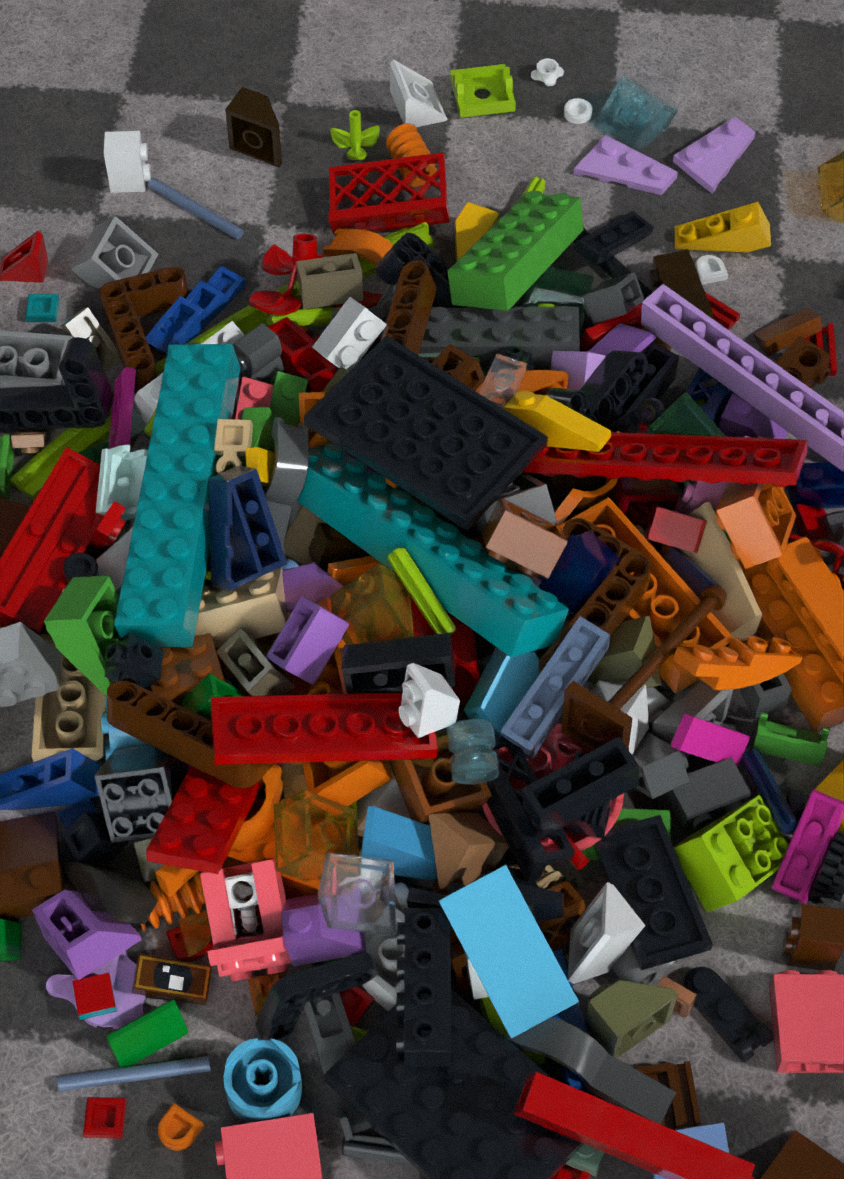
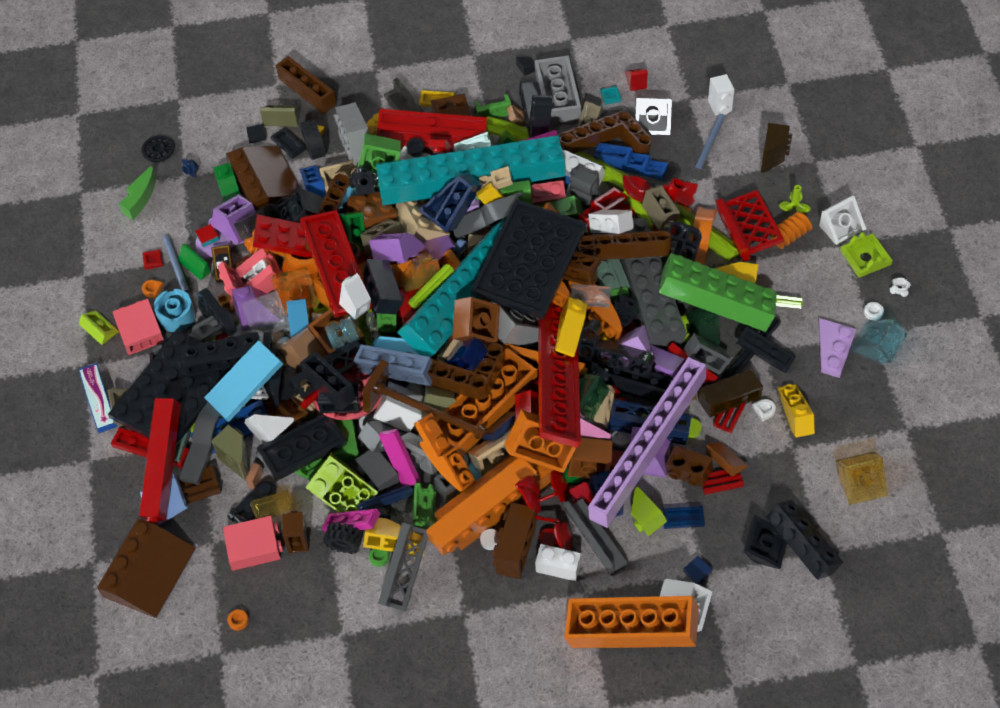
camera: 80 degrees right, 0 degrees up
(715, 153) = (867, 393): lavender wing -> none
(743, 975) = (273, 505): none -> clear yellow tile

